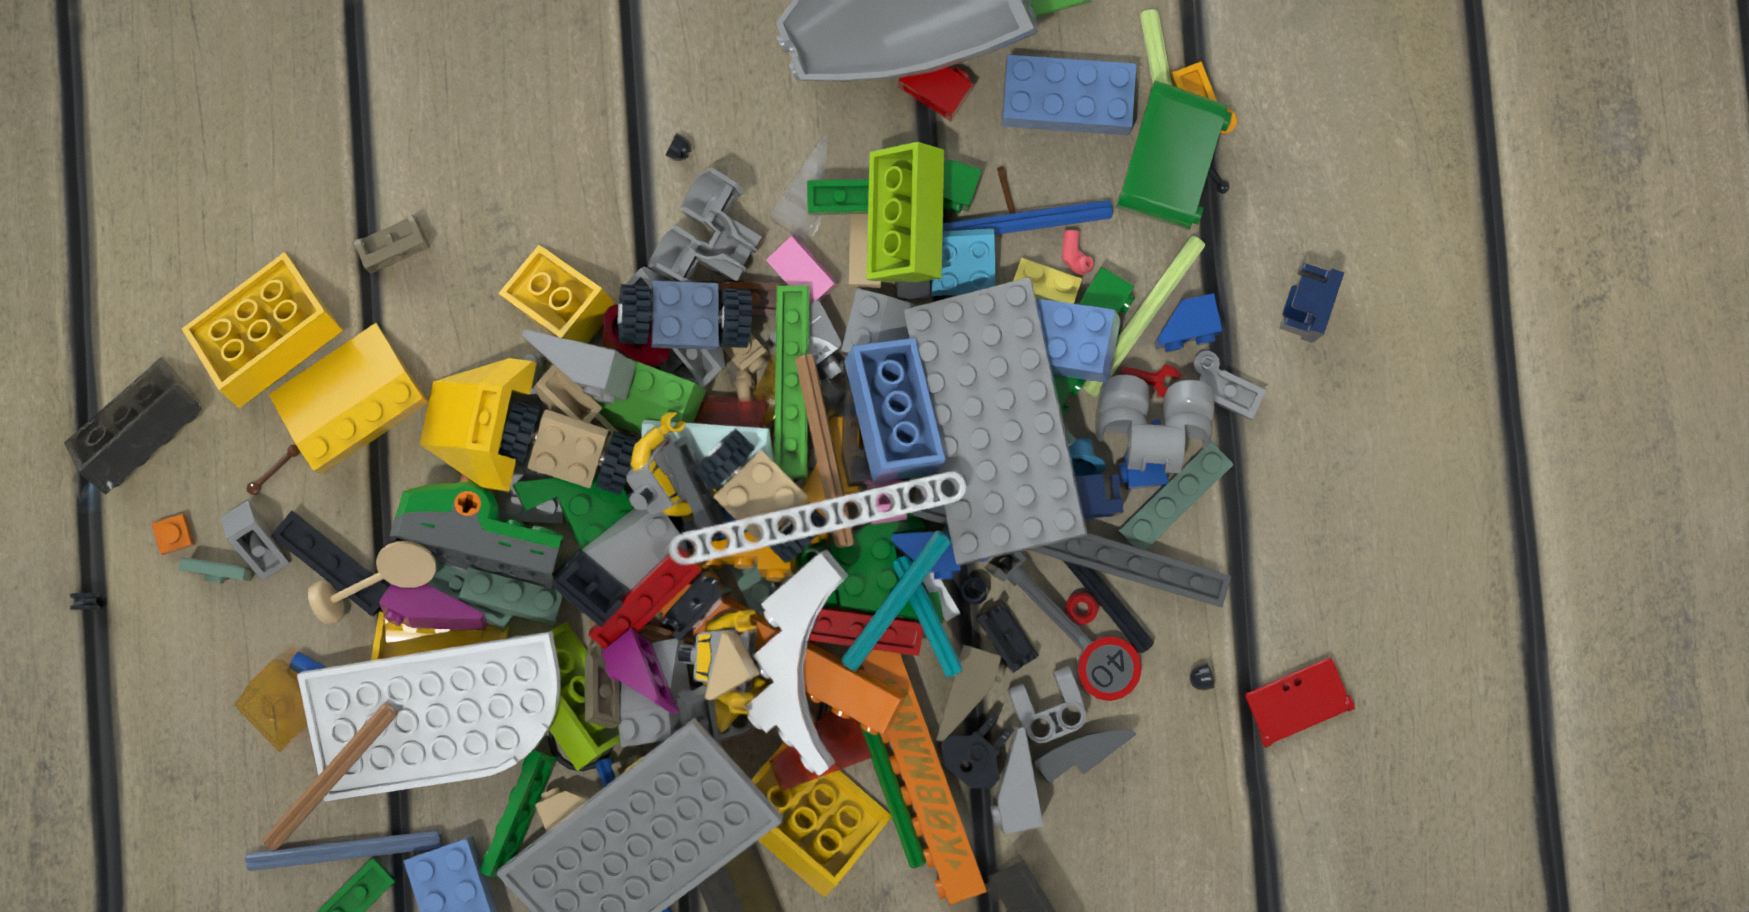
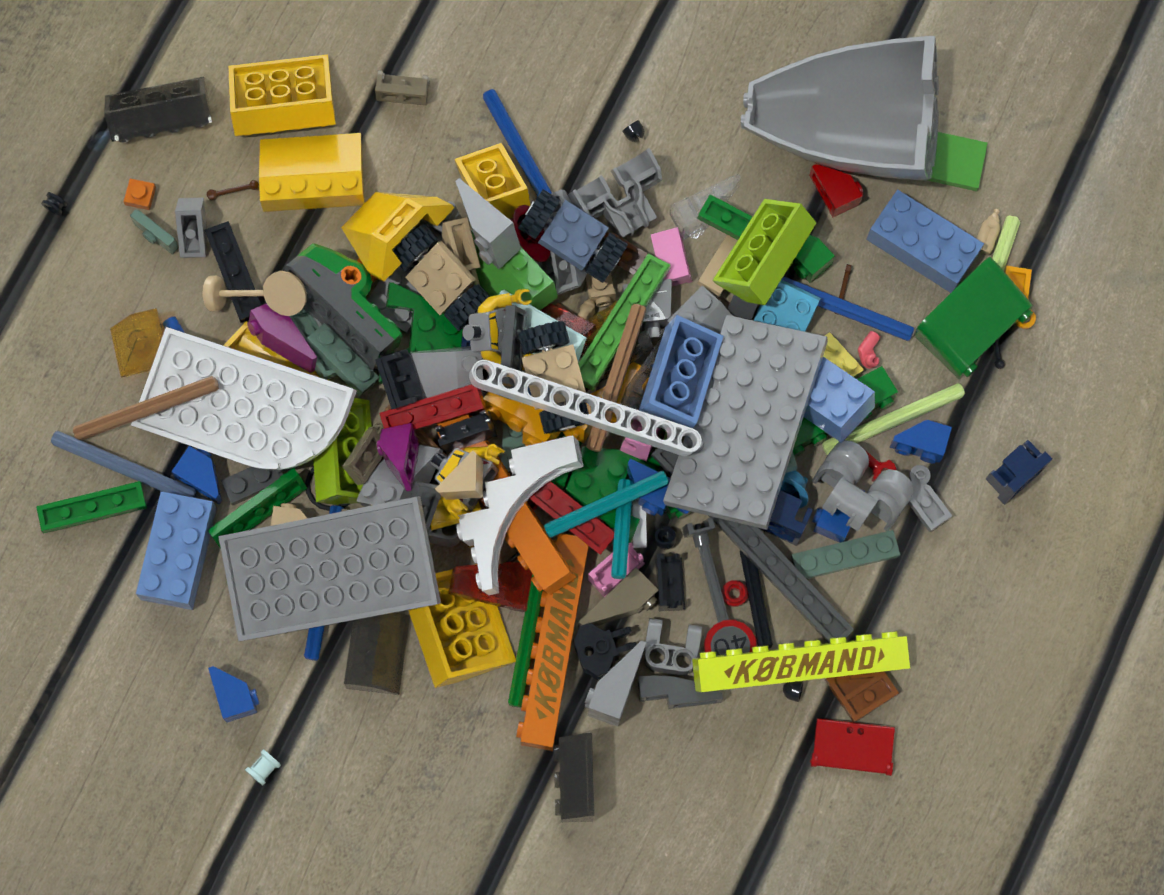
camera: 25 degrees right, 10 degrees down
(432, 811) = (198, 472): none -> blue slope
(490, 792) = (249, 483): none -> dark grey hinge
(558, 237) = (515, 142): none -> blue axle
(931, 670) = (601, 575): none -> bright pink hinge
(1131, 42) = (989, 232): none -> tan piece
(1196, 649) = (800, 663): none -> neon yellow brick
(1276, 638) = (862, 692): none -> dark orange wing

